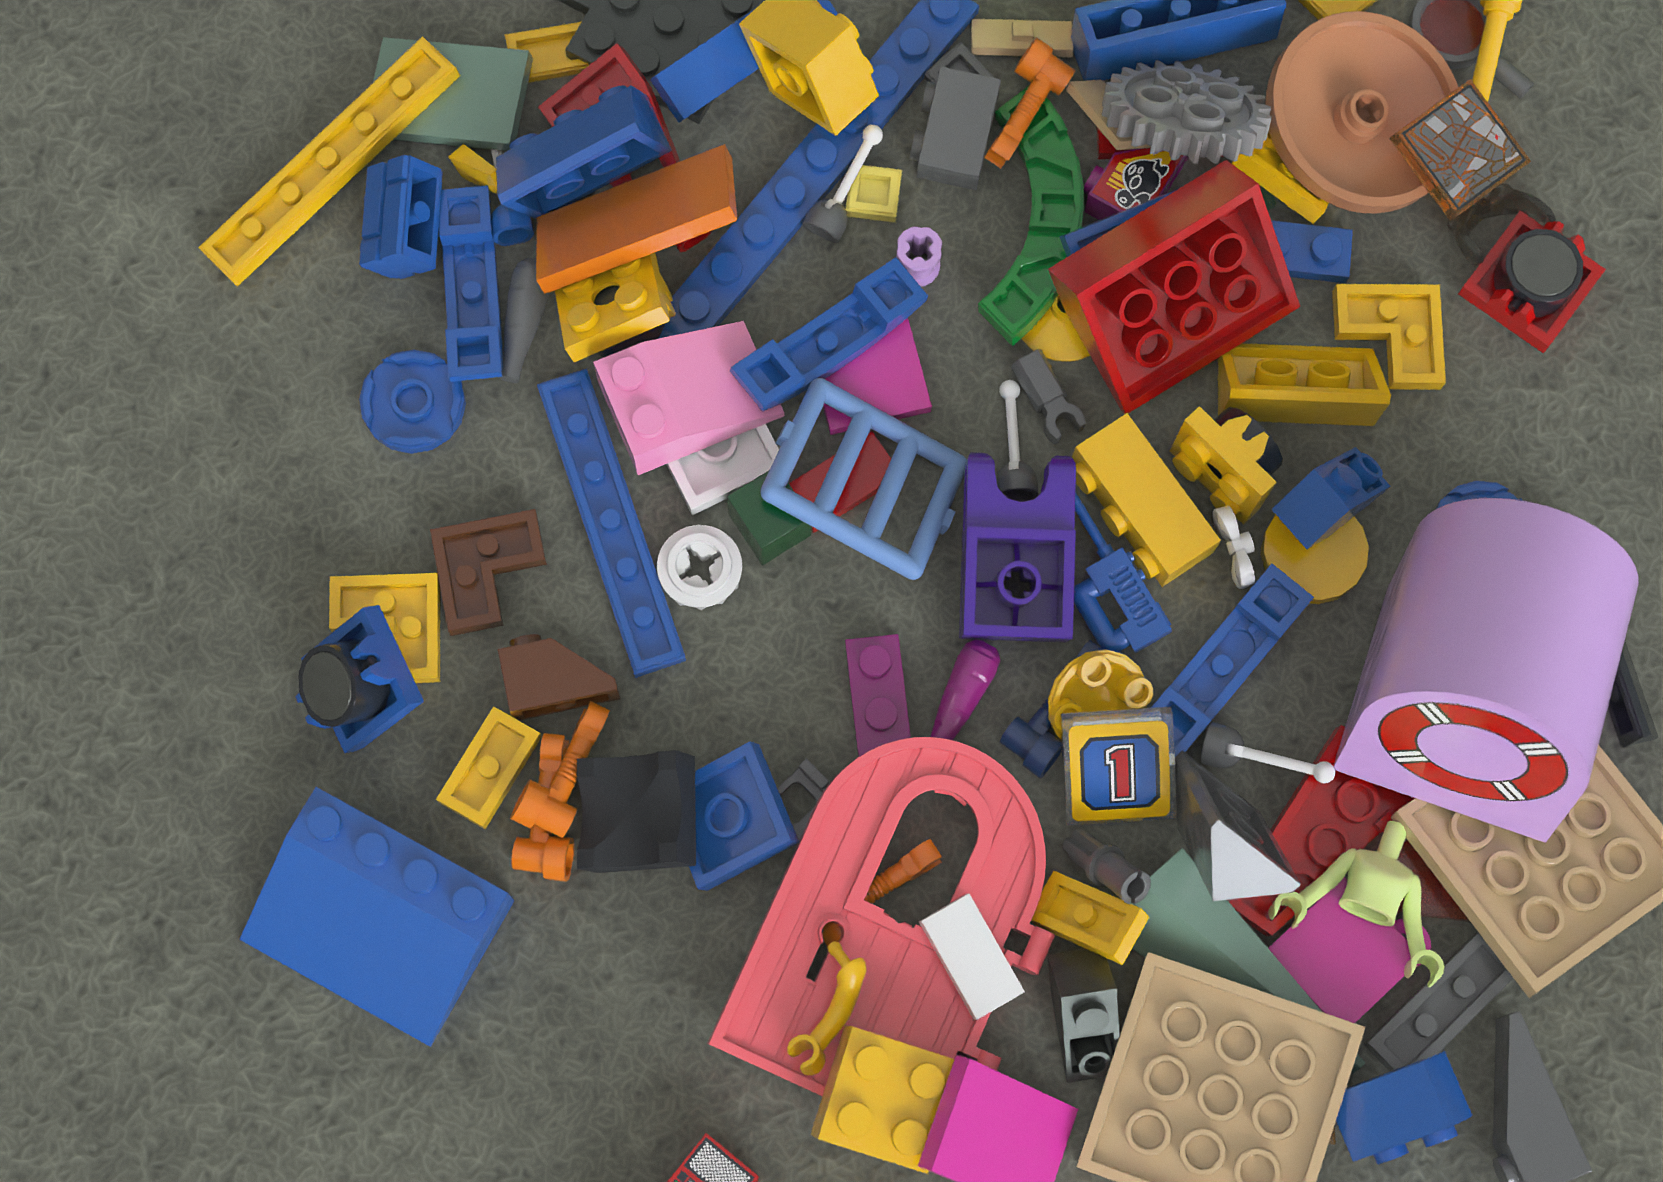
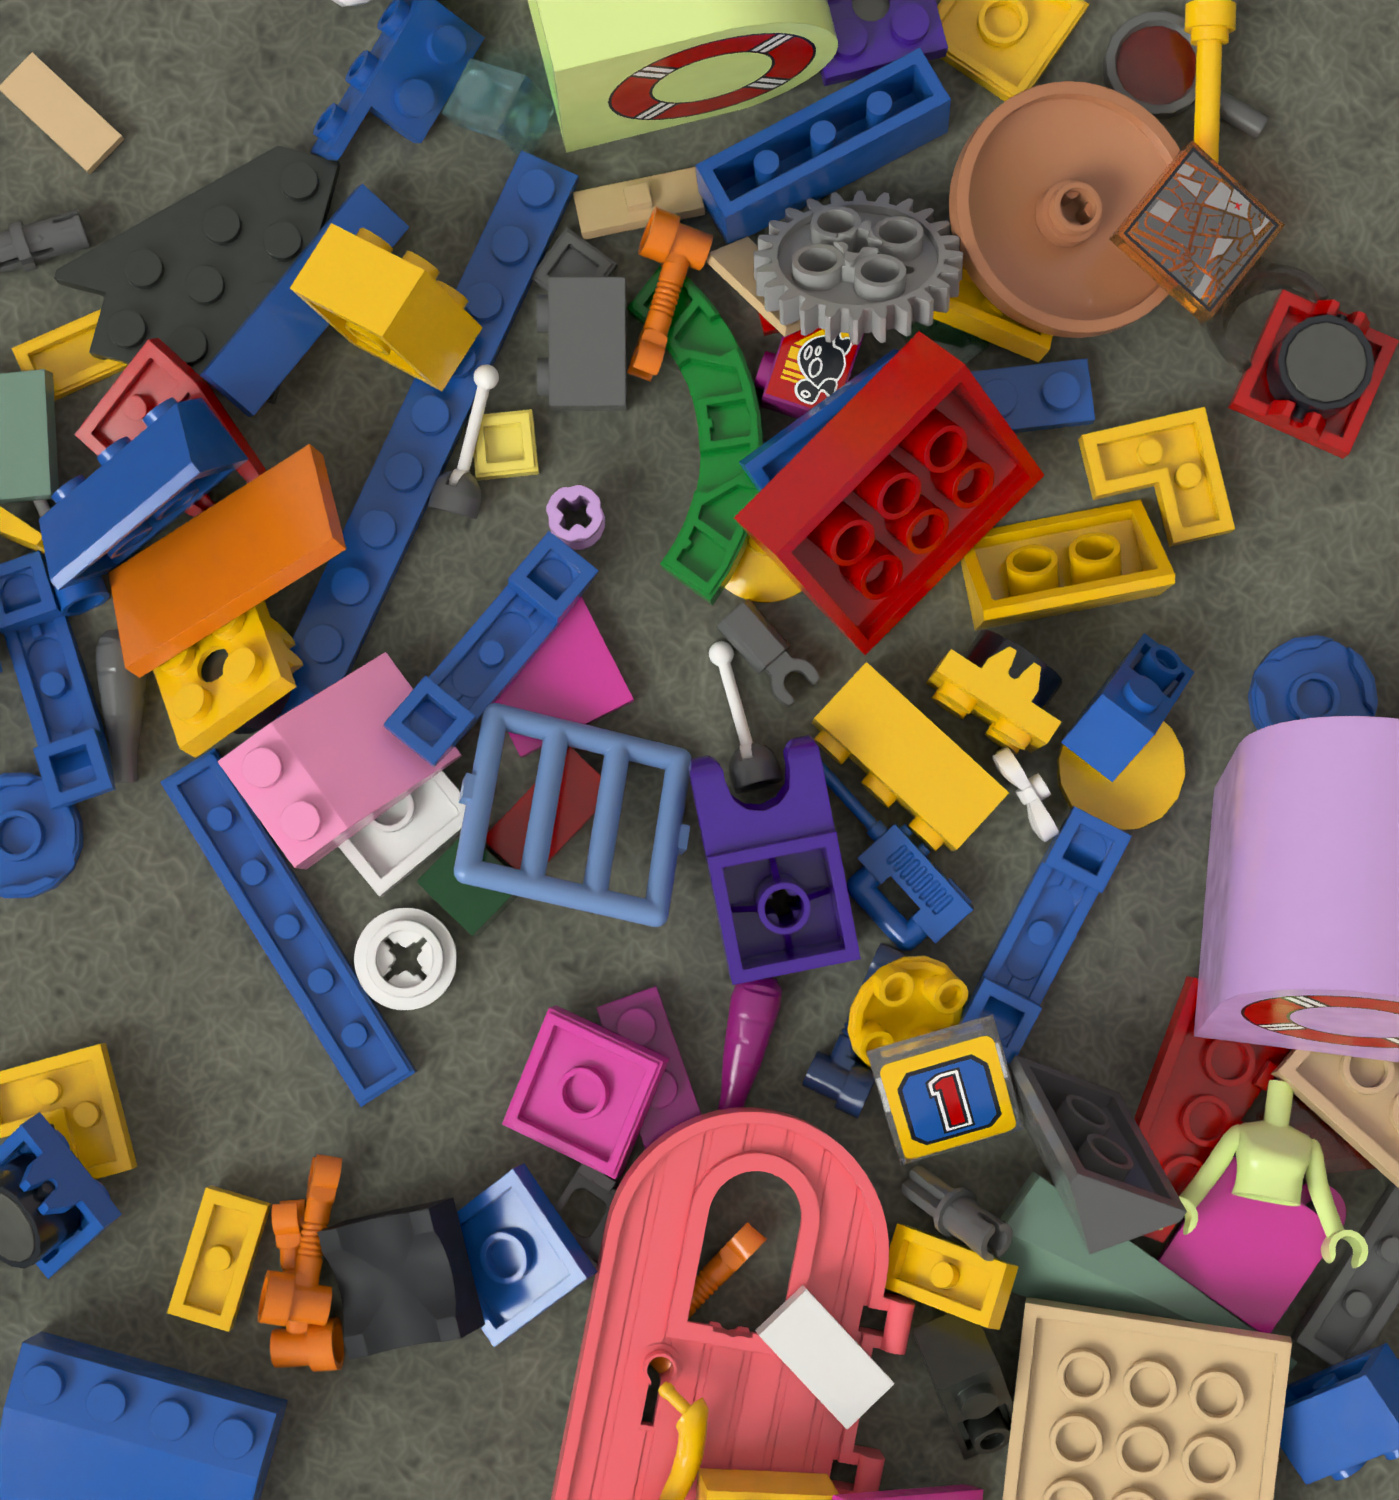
camera: 10 degrees left, 10 degrees up
(471, 556) = (134, 1018): reddish brown plate -> none
(550, 679) = (261, 1137): reddish brown slope -> none
(821, 702) = (585, 1091): none -> dark pink tile
(1226, 747) = (1065, 1033): hinge -> none

